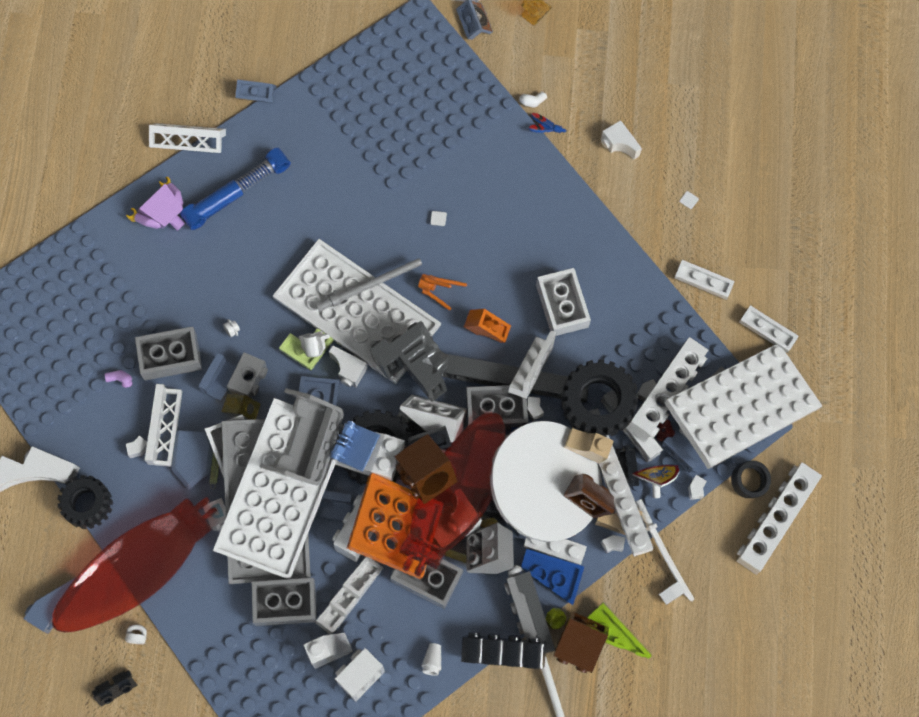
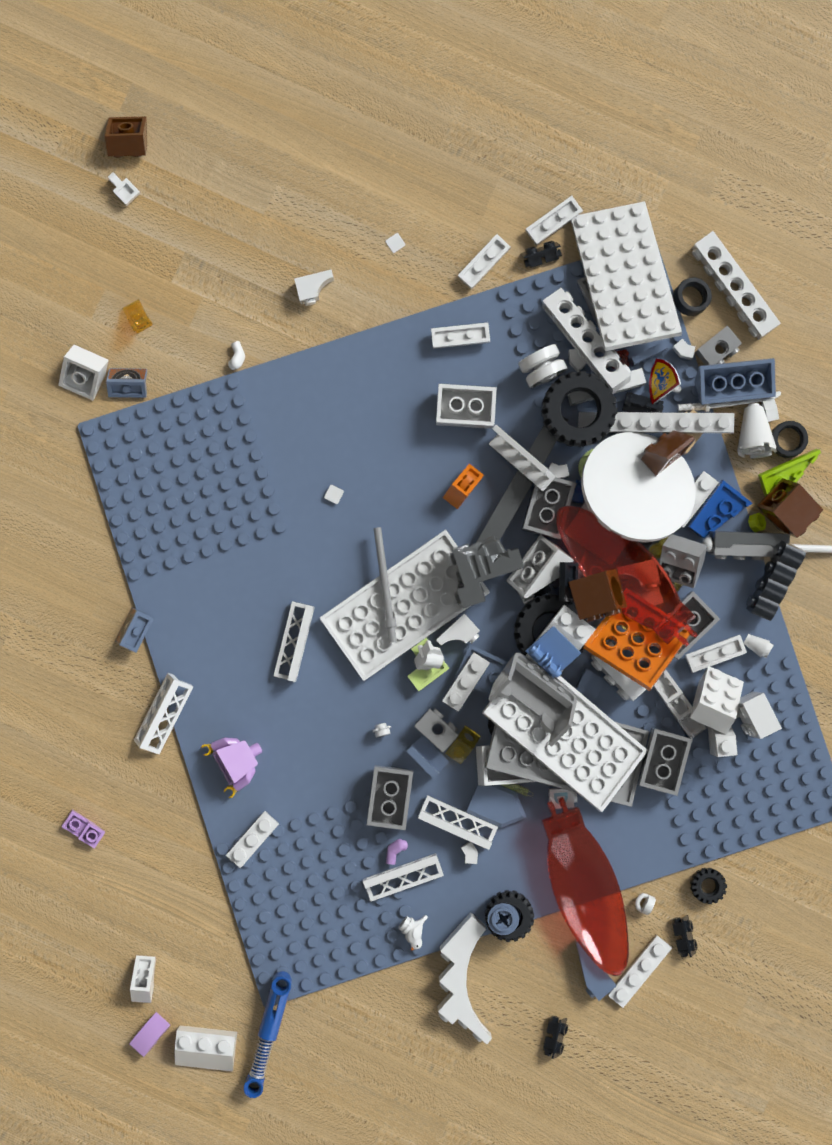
camera: 65 degrees left, 15 degrees up
(45, 418) = (413, 931): none -> white animal
(62, 107) = (83, 828): none -> lavender slope
(66, 654) = (639, 971): none -> white plate
(78, 482) = (512, 920): none -> sand blue gear
(93, 248) = (252, 839): none -> white plate
(99, 386) = (399, 872): none -> white fence
(163, 685) = (697, 880): none -> black tyre
(196, 214) = (238, 685): blue piece -> none
(289, 229) = (301, 642): none -> white fence
(314, 387) = (466, 681): none -> white plate
(360, 628) = (717, 700): none -> white brick
(410, 619) = (715, 653): none -> white plate
(430, 282) = (400, 526): orange plant -> none
(545, 125) = (271, 352): blue piece -> none
(589, 445) = (619, 435): tan arch -> none
(613, 543) = (708, 445): white piece -> none
(627, 278) = (460, 335): none -> white plate
(629, 354) = (541, 363): none -> white wheel
(641, 585) = (755, 433): none -> white cone
(661, 612) = (803, 439): none -> black tyre
(686, 547) = (736, 381): none -> sand blue slope
(723, 522) = (724, 338): none -> light grey brick
(728, 322) = (548, 251): none -> black hinge

